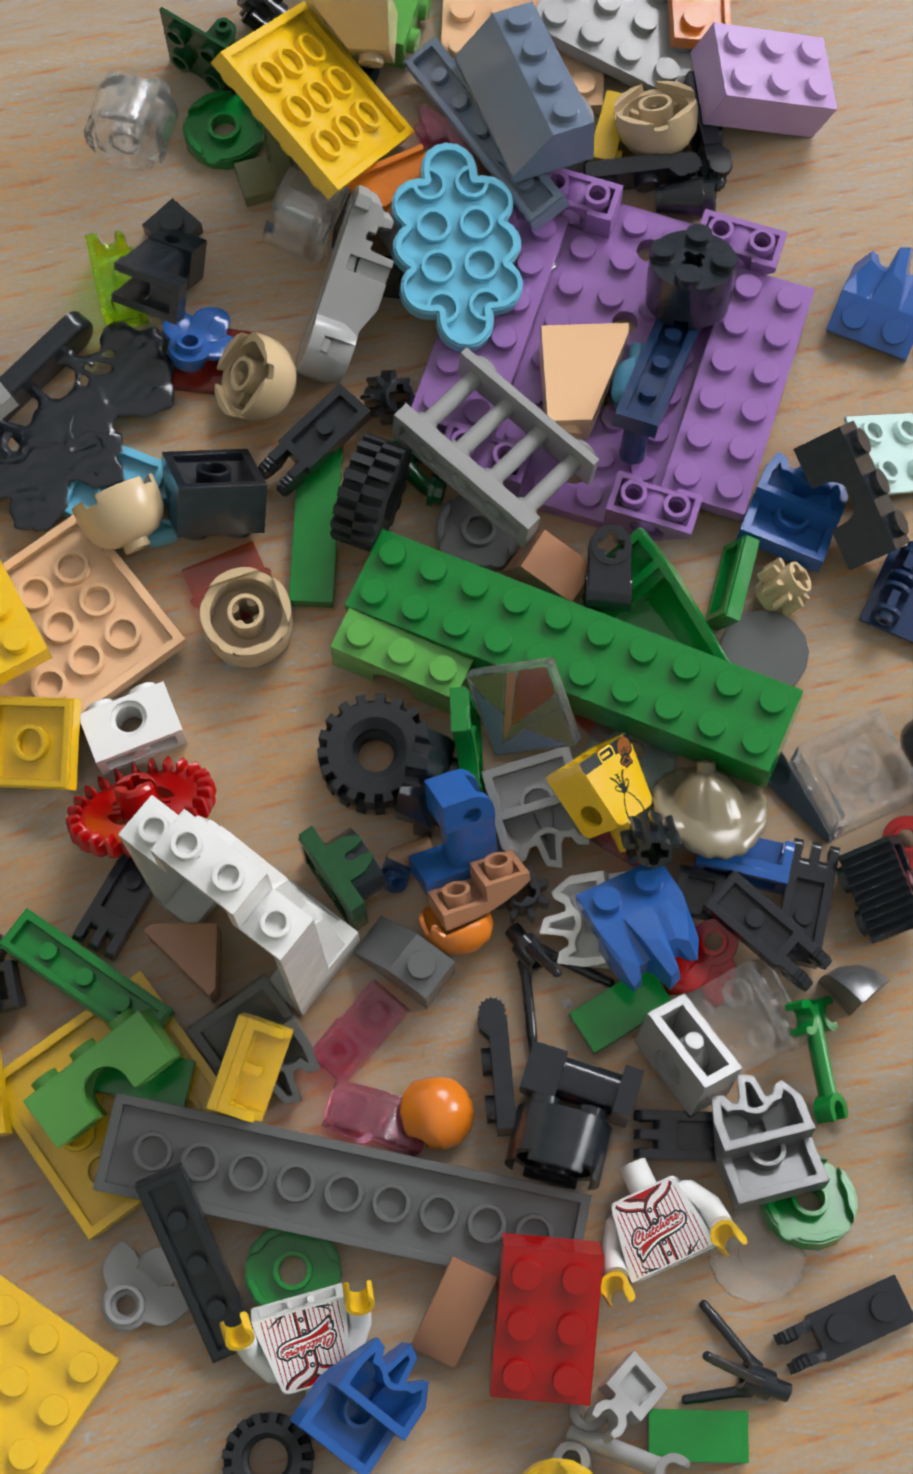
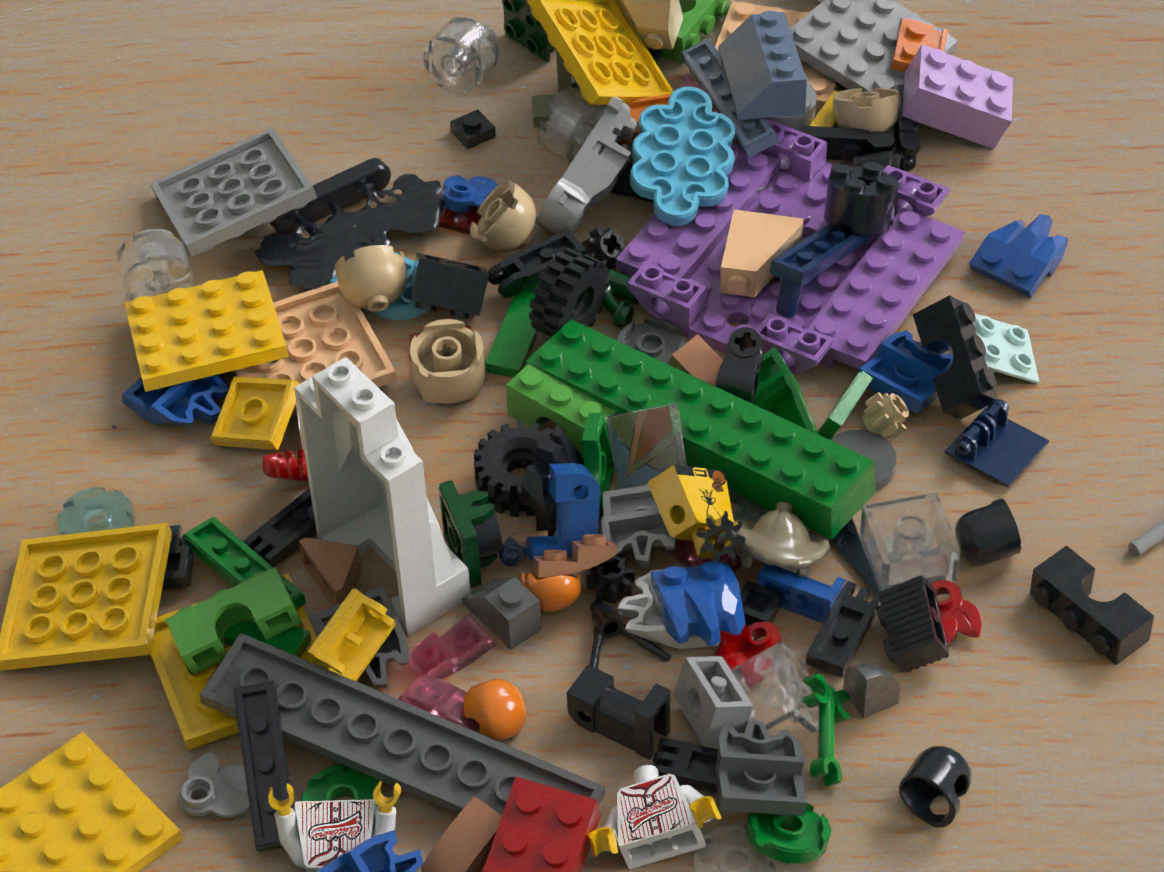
camera: 15 degrees right, 25 degrees down
(108, 280) = (418, 148): clear neon green hinge -> none
(161, 274) = (459, 143): black piece -> none
(218, 150) = (521, 89): green tile -> none
(485, 486) = (661, 301): light grey fence -> none
(497, 1063) = (554, 689): black hinge -> none
(559, 1142) = (588, 738): black brick -> none
(617, 1012) = (660, 670): green tile -> none
(764, 928) = (803, 628): black hinge -> none

